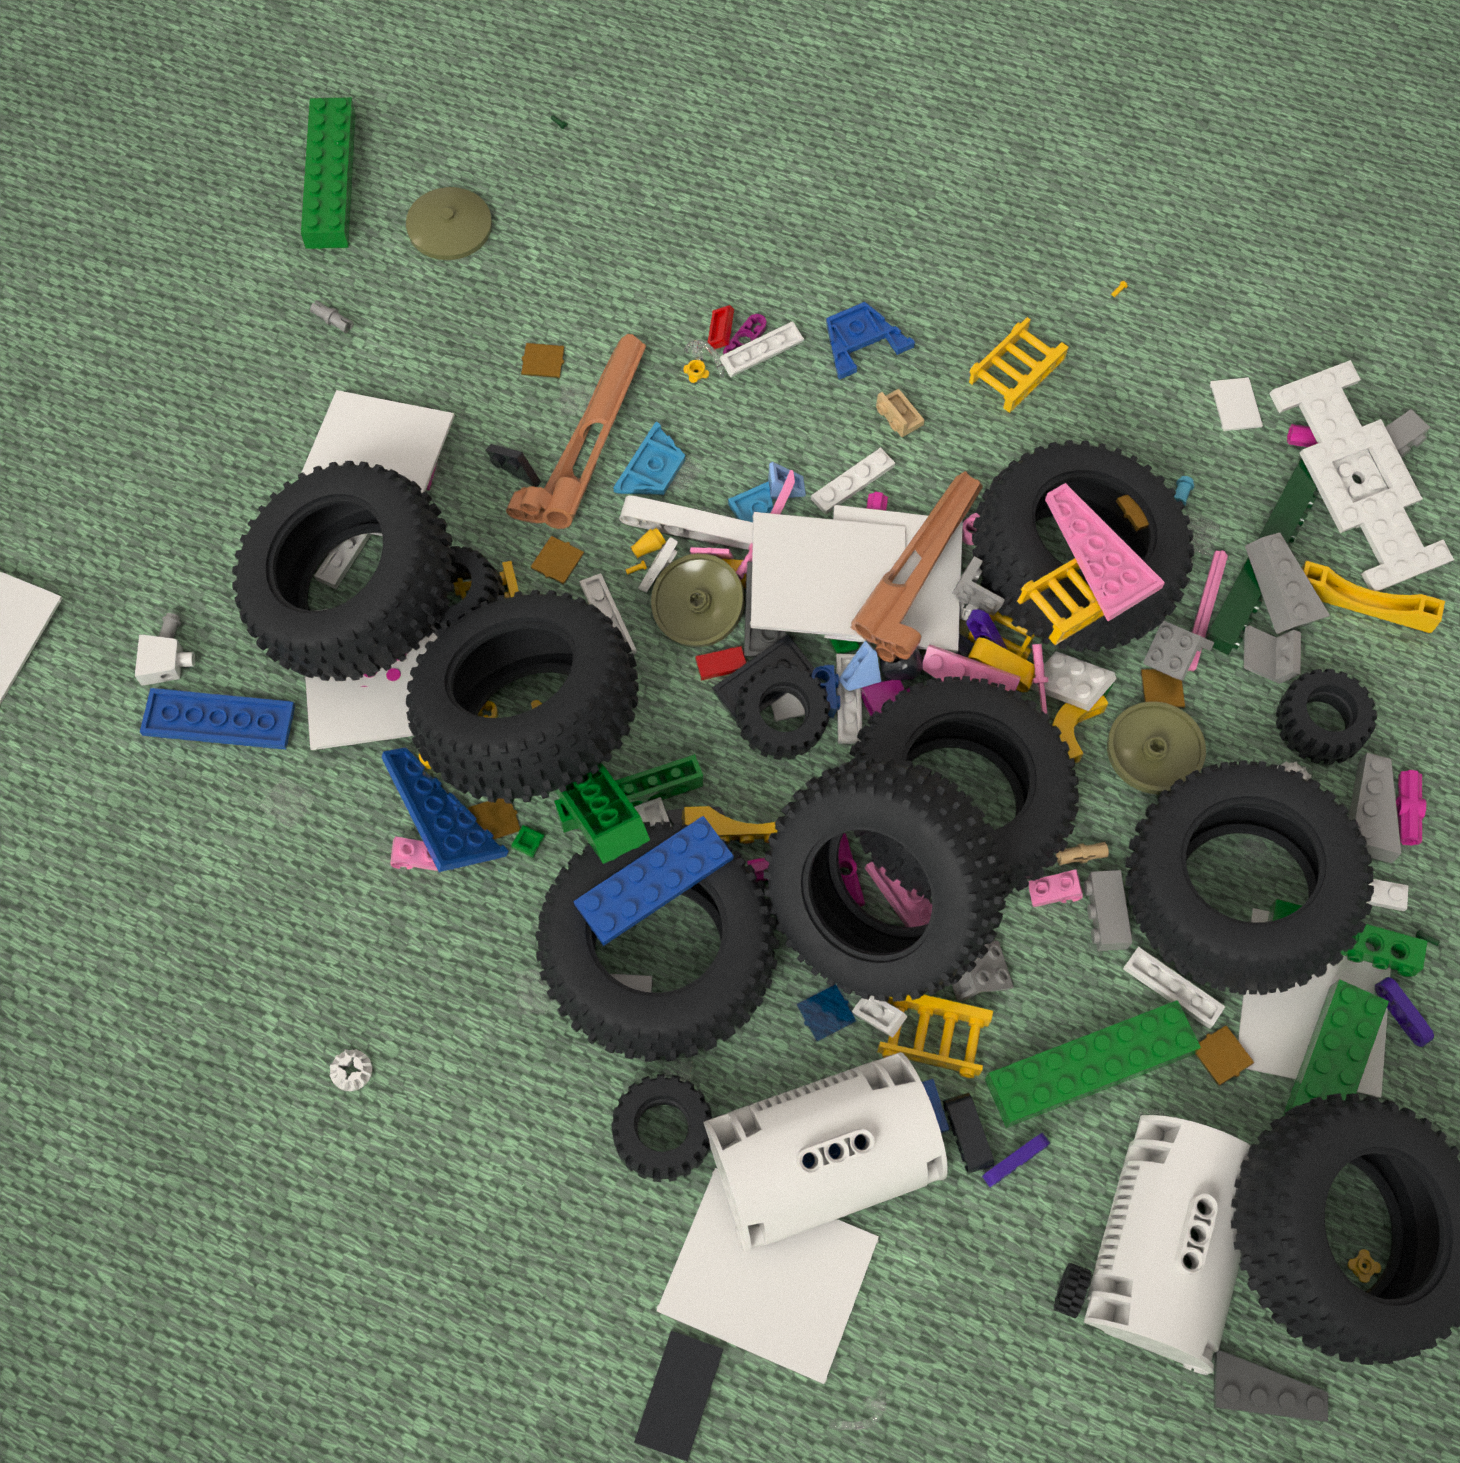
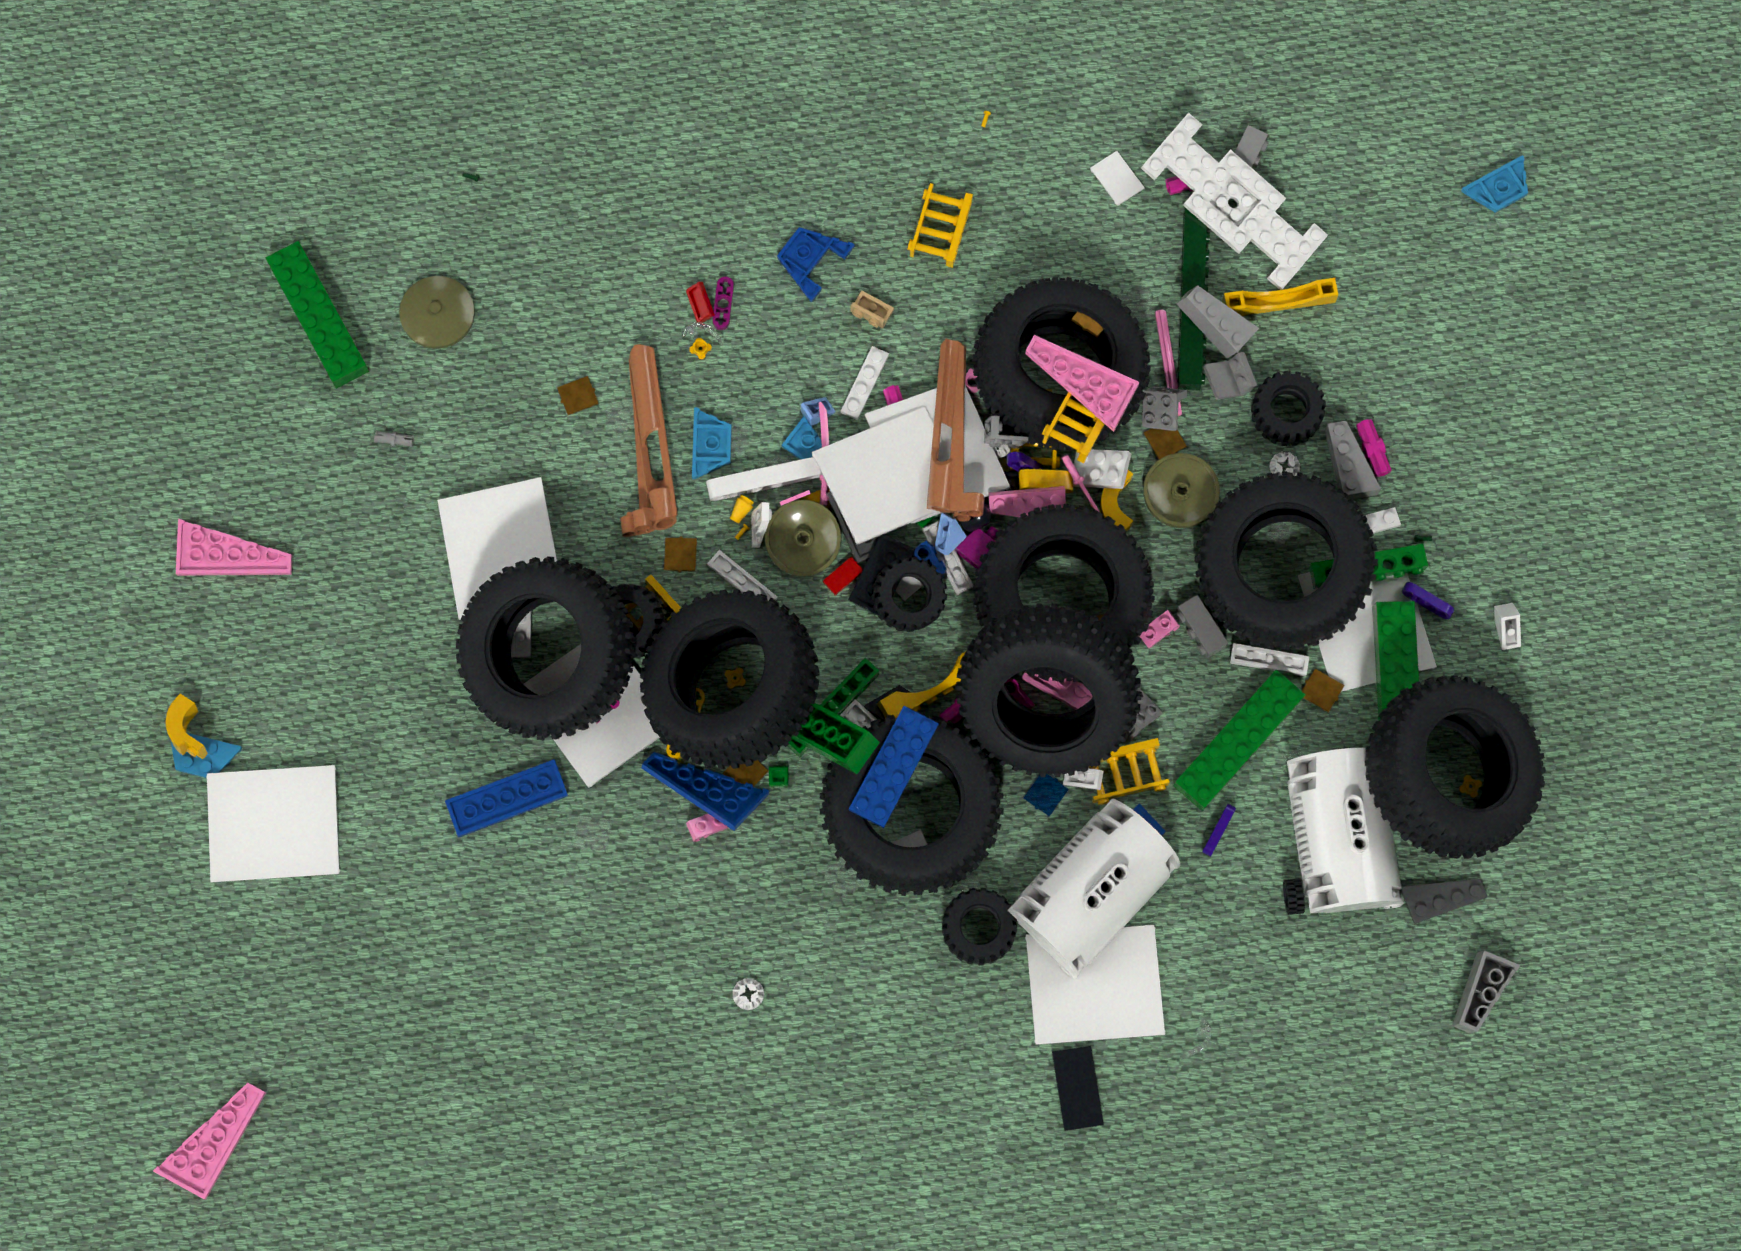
camera: 25 degrees left, 10 degrees up
(88, 342) = (217, 553): none -> bright pink wing
(160, 659) = (438, 775): white torso -> none
(170, 624) = (428, 749): light grey pin -> none
(514, 463) = (606, 494): black wing -> none
(761, 349) = (741, 306): white tile -> none
(969, 1132) = (1180, 827): black beam -> none
(1083, 853) = (1166, 593): tan pin -> none
(1183, 488) = (1110, 272): medium azure pin -> none

